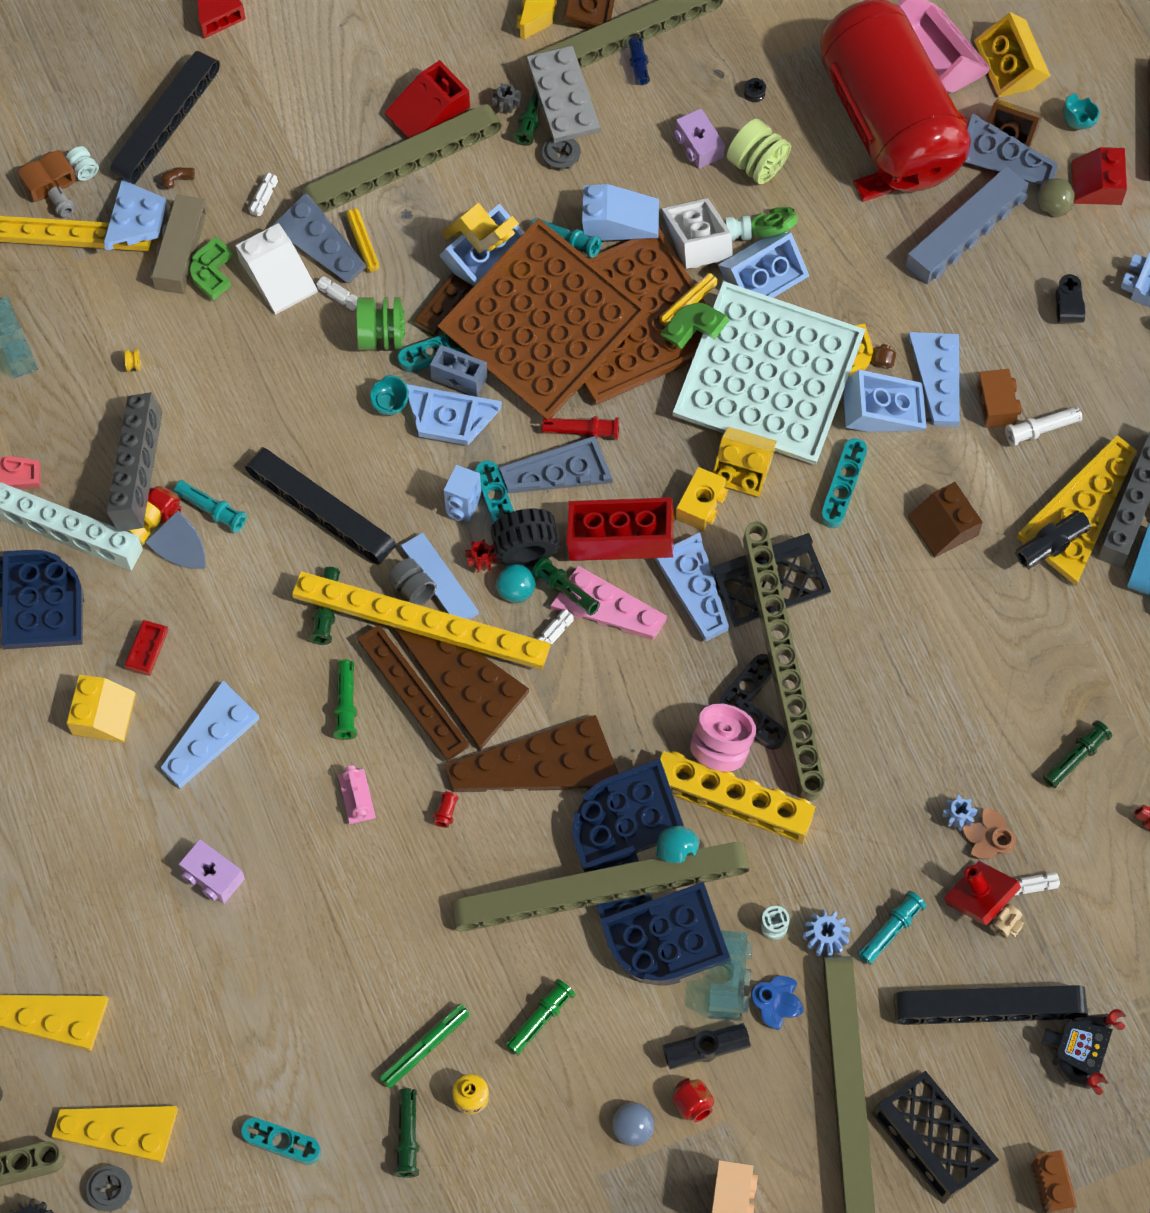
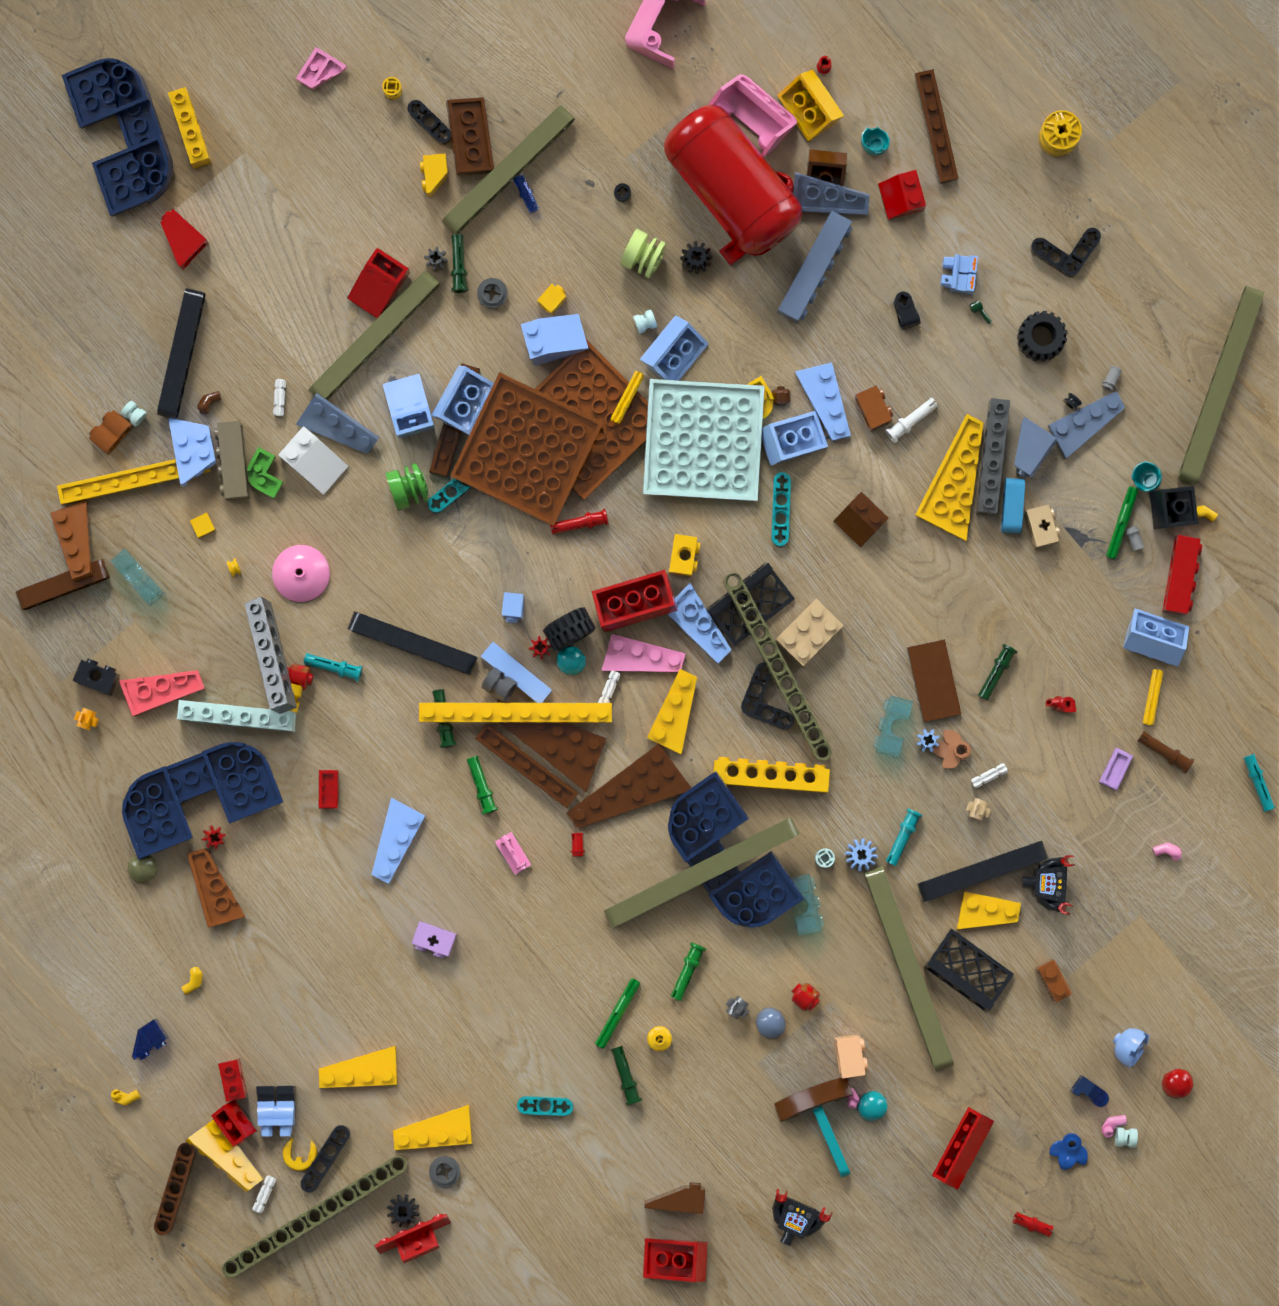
camera: 20 degrees left, 20 degrees up
(63, 206) = (133, 453): light grey pin -> none
(100, 709) = (314, 845): yellow slope -> none
(114, 305) = (202, 525): none -> yellow tile
(179, 543) = (323, 704): sand blue shield -> none
(212, 403) = (310, 583): none -> bright pink dish
(337, 293) = (365, 465): white axle -> none
(362, 240) = (368, 414): yellow axle -> none
(389, 395) = (433, 541): teal hair -> none
(414, 244) = (408, 406): none -> light blue slope
(449, 414) = (480, 542): light blue wing -> none
(458, 370) = (477, 506): sand blue brick -> none
(480, 229) = (459, 395): yellow bracket -> none
(496, 484) = (530, 580): teal beam -> none
(559, 581) = (601, 651): dark green pin -> none
(560, 468) = (576, 559): sand blue wing -> none
(563, 94) = (479, 246): light grey plate -> none
(577, 239) = (527, 370): teal pin -> none
(592, 1085) = (737, 1007): none -> flat silver gear
(622, 692) = (674, 714): none -> yellow wing
(631, 174) = (552, 299): none -> yellow brick
(676, 843) = (746, 833): teal hair -> none
(692, 318) = (635, 416): bright green plate -> none
(698, 233) = (616, 333): white slope -> none
(699, 138) = (603, 256): lavender brick -> none
(722, 737) = (752, 738): bright pink wheel -> none
(724, 1041) = (814, 950): black piece -> none
(744, 460) = (705, 515): yellow slope -> none
(777, 222) = (671, 310): bright green tile -> none
(780, 1003) = (843, 910): blue plate -> none
(823, 177) = (694, 264): none -> black gear
(837, 634) = (809, 633): none -> tan brick
(927, 762) = (887, 742): none -> clear light blue arch
(980, 1061) = (984, 911): none -> yellow wing
(982, 892) = (957, 795): red tile -> none
(988, 743) = (934, 680): none -> reddish brown tile
(1040, 22) = (825, 68): none -> red pin
(1053, 539) = (941, 515): black piece -> none
(1056, 197) = (874, 222): olive hair -> none

